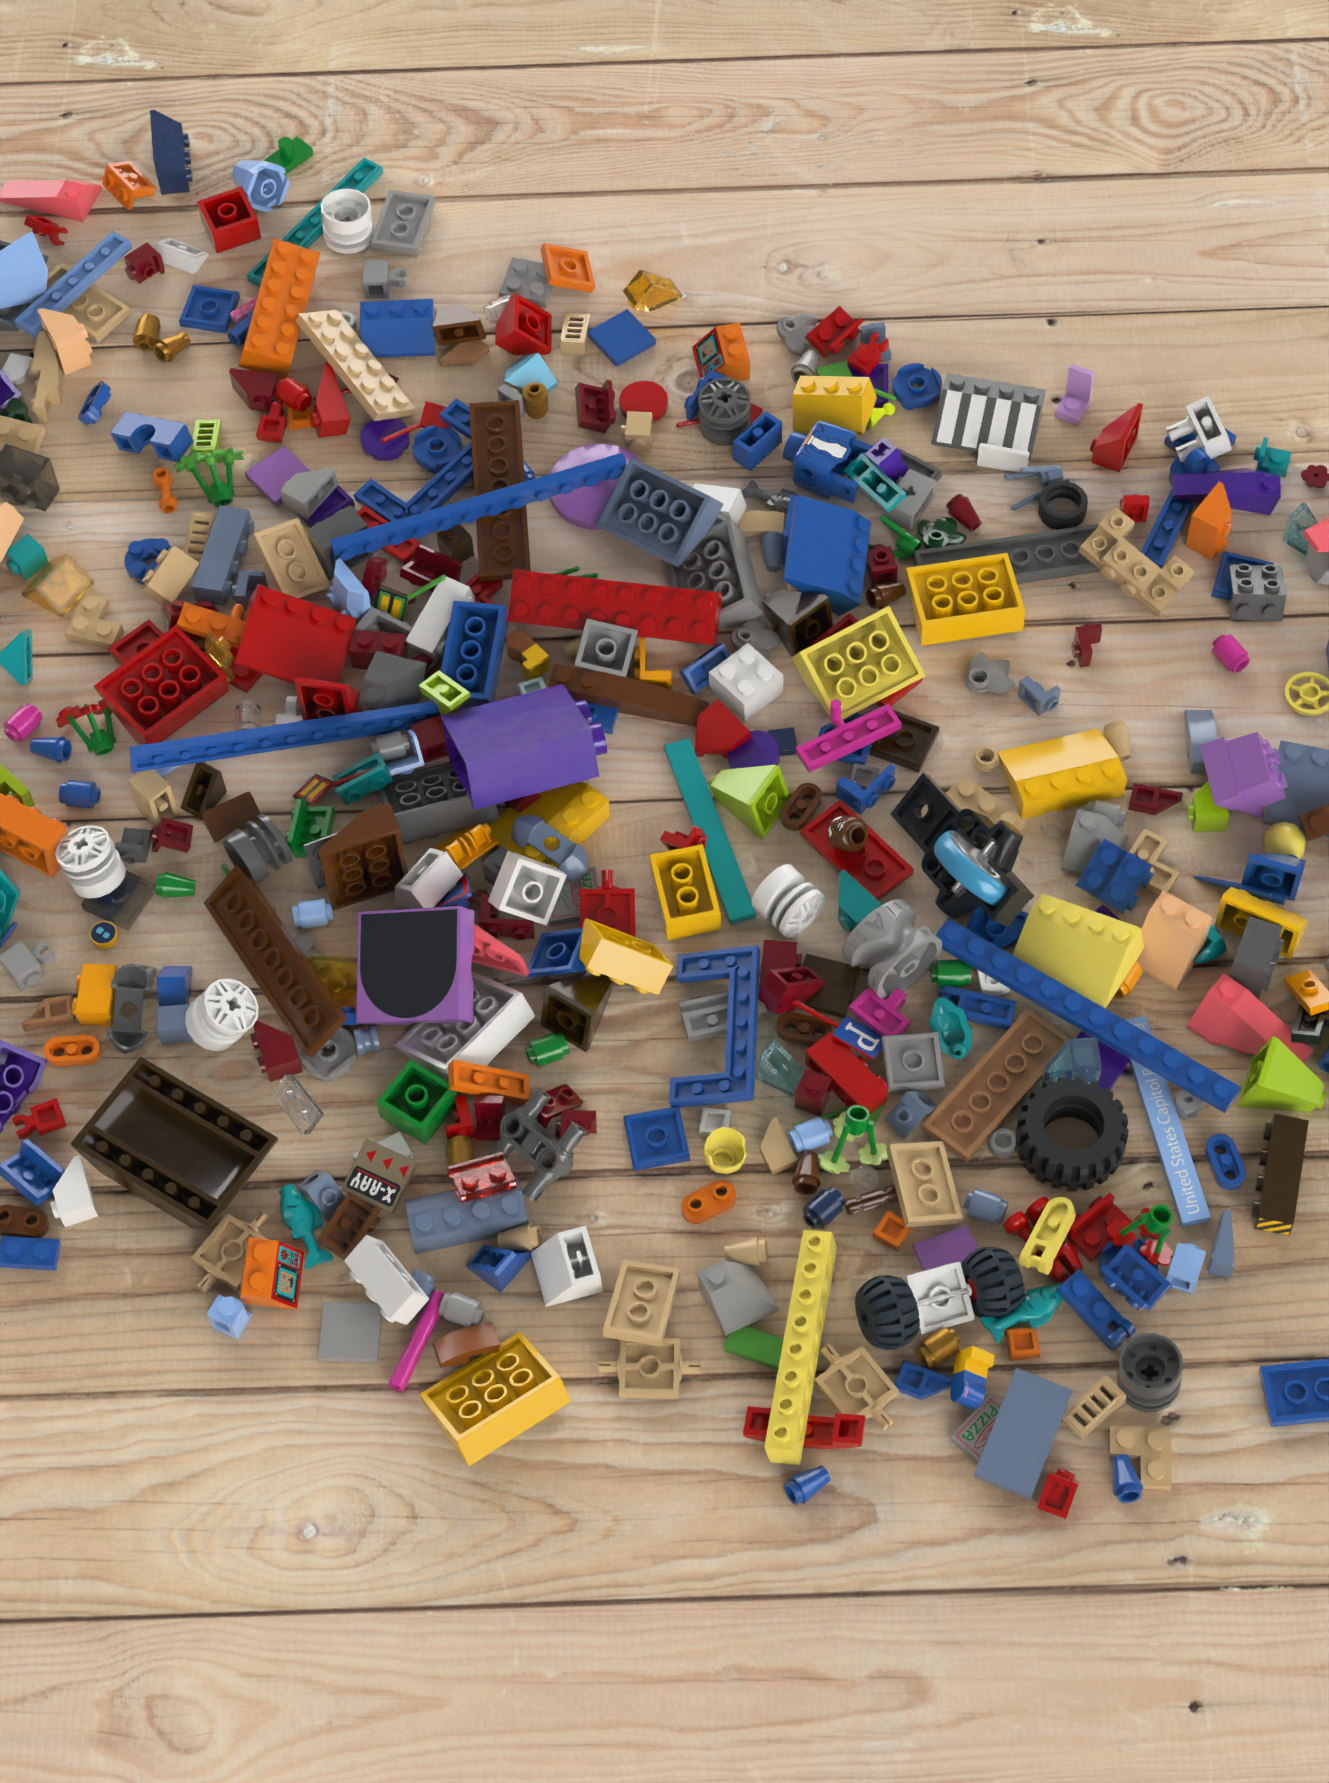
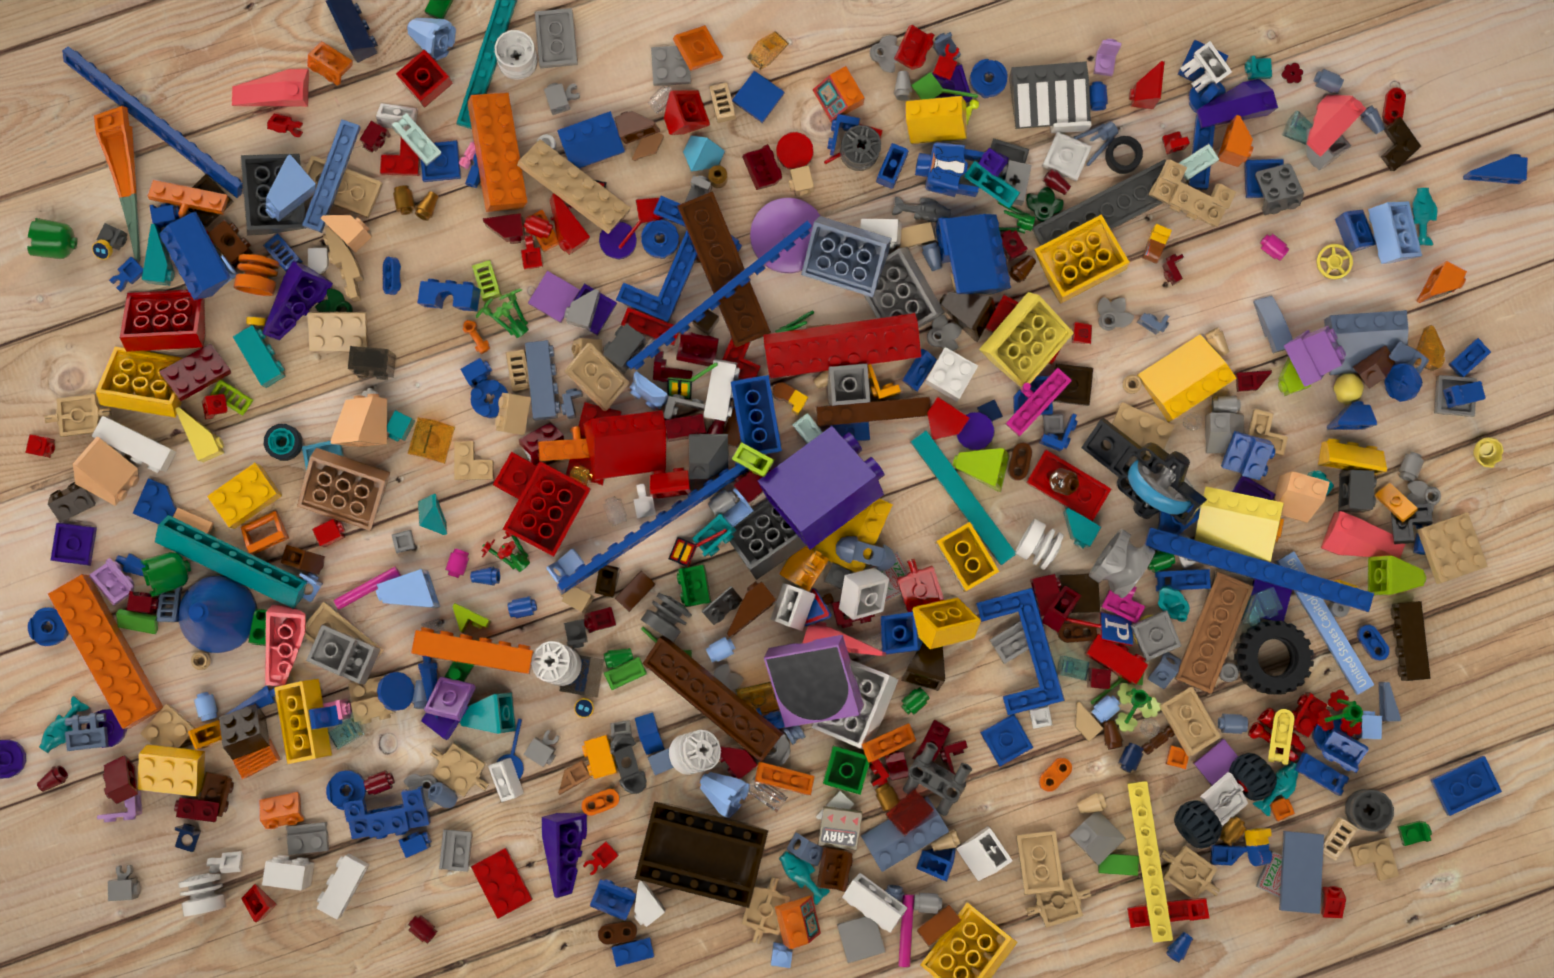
camera: 25 degrees left, 25 degrees up
(147, 524) = (476, 371): none -> blue brick
(168, 300) = (404, 164): none -> red plate
(176, 910) = (625, 673): none -> bright green tile
(191, 274) = (416, 139): none -> light aqua plate
(244, 1083) = (724, 792): none -> light blue cone
(329, 1089) = (784, 778): none -> orange plate
(679, 840) = (950, 519): red bracket -> none
(725, 1150) = (1056, 739): light yellow hair -> none
(937, 685) = (1082, 333): none -> red slope
(989, 491) = (1067, 156): none -> white tile
(1050, 436) = (1098, 96): none -> blue brick
(1073, 609) = (1156, 243): none -> leg
(1126, 1482) = (1370, 880): blue cone -> none
(1156, 531) = (1199, 161): none -> light aqua plate
(1213, 1435) = (1414, 832): none -> green bracket
(1263, 894) = (1334, 434): blue bar -> none

